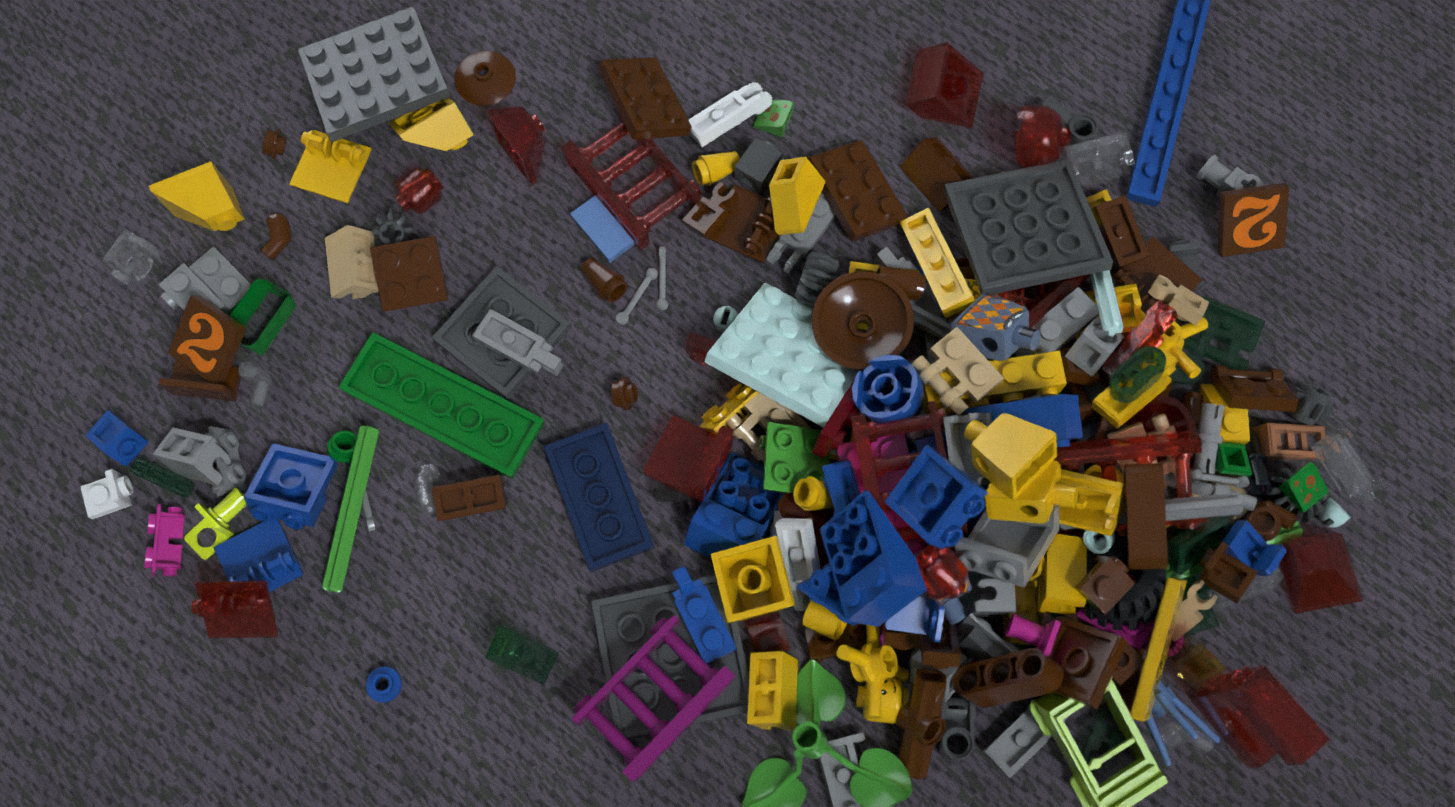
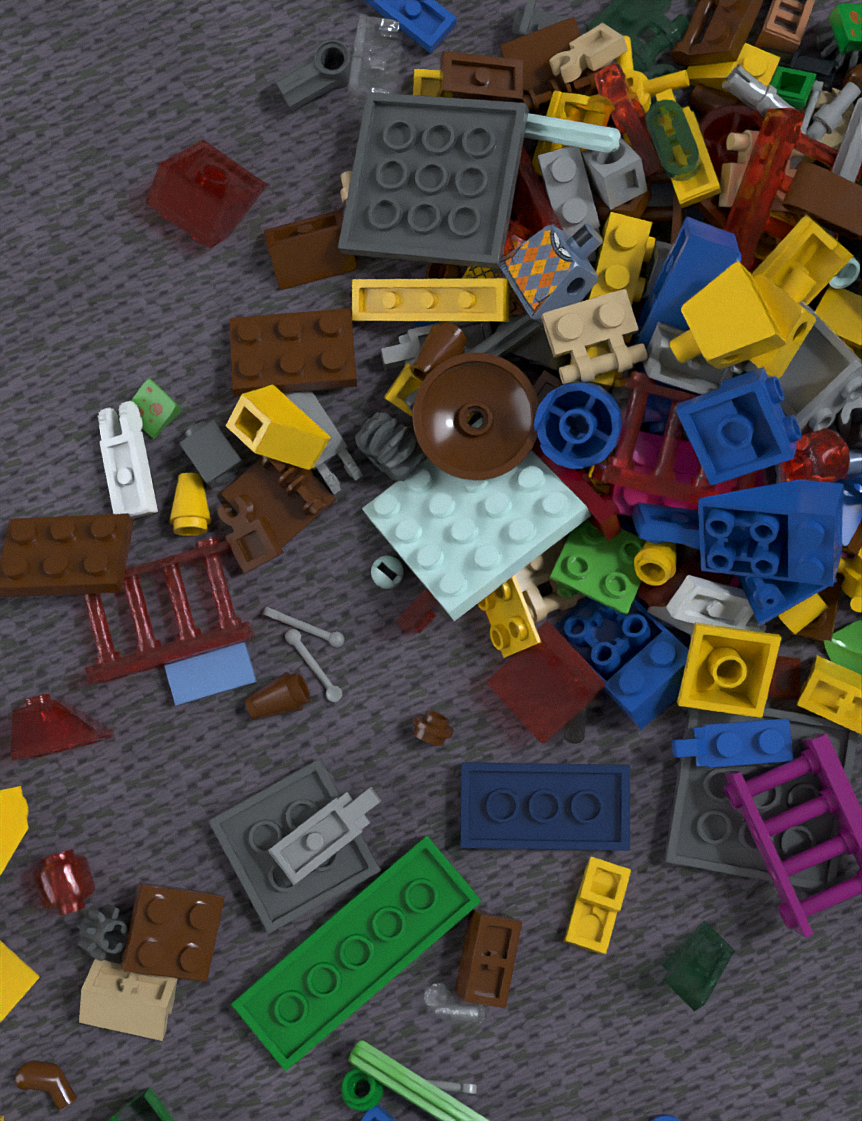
camera: 70 degrees left, 10 degrees up
(539, 565) = (597, 905): none -> yellow slope
(1041, 136) = (325, 110): clear red cylinder -> none

